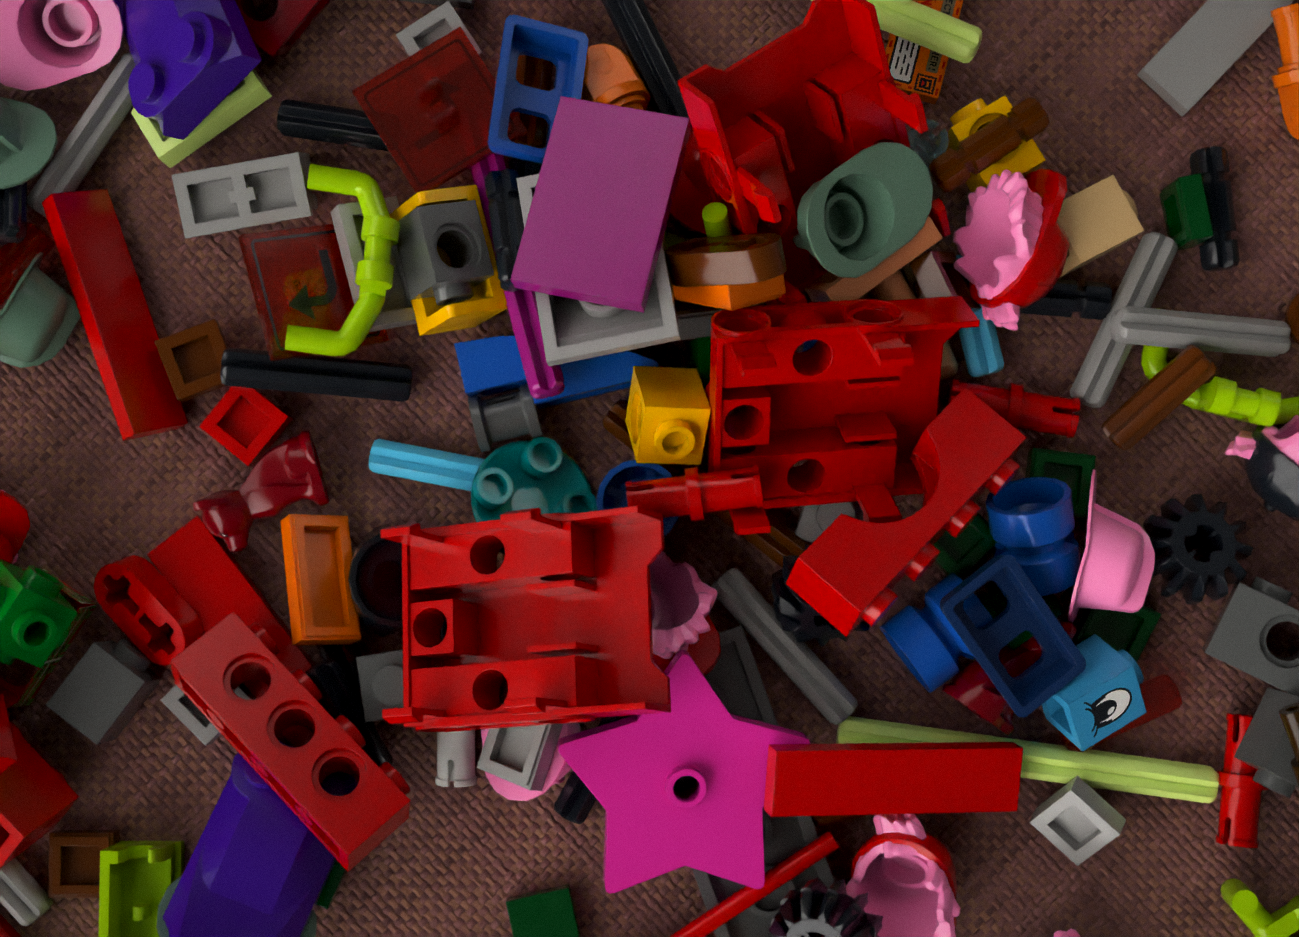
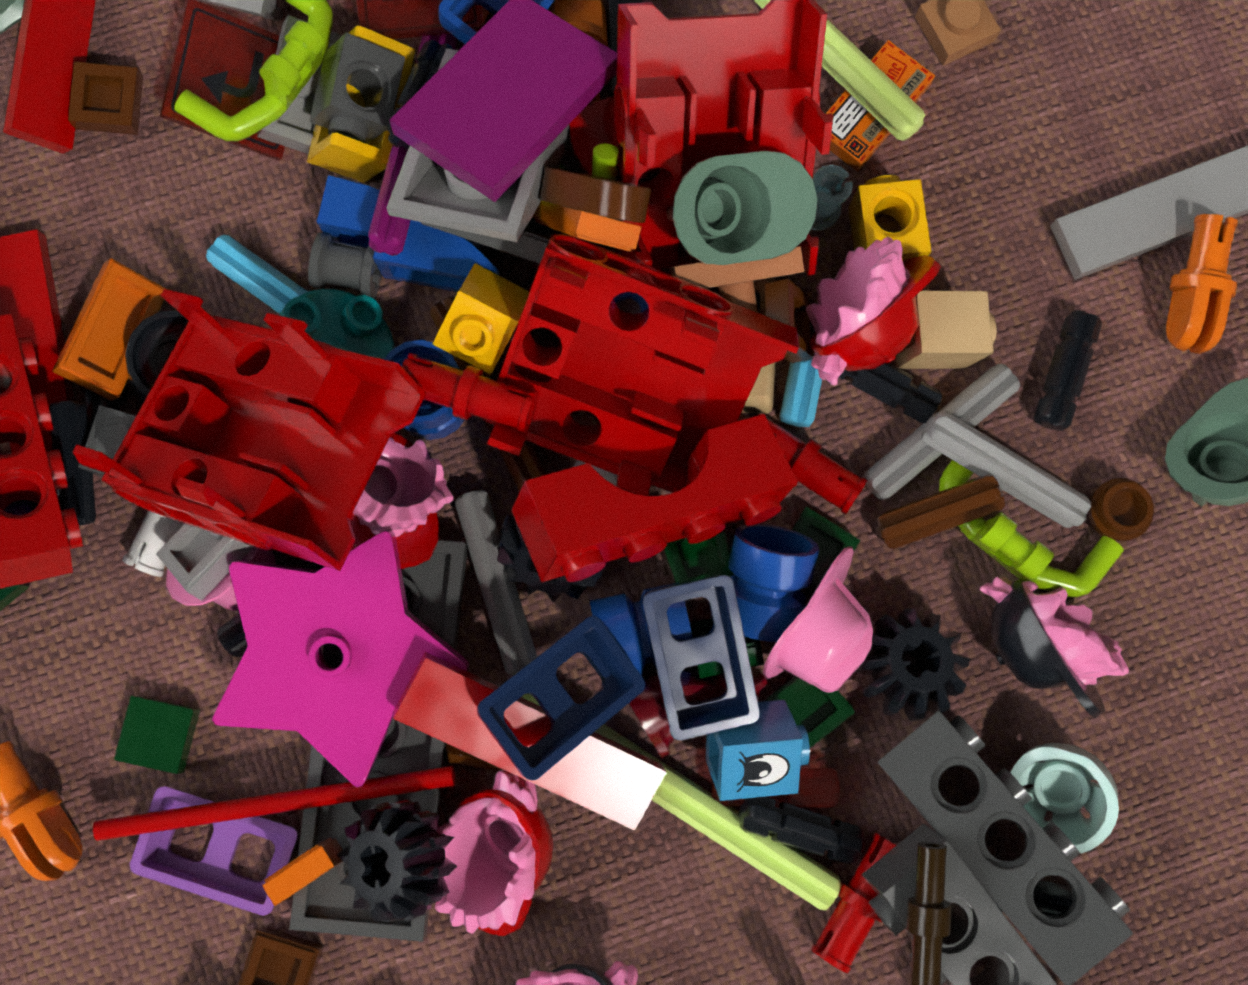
camera: 20 degrees right, 5 degrees down
(246, 423) = (120, 169): red plate -> none
(276, 481) = (117, 229): dark red animal -> none
(316, 375) = (199, 153): black axle -> none
(927, 745) = (569, 721): none -> dark blue piece
(989, 144) = (885, 211): reddish brown axle -> none
(1077, 821) = (689, 868): light grey plate -> none
(1162, 741) = (801, 829): none -> black axle
(1186, 211) = (1040, 359): dark green tile -> none

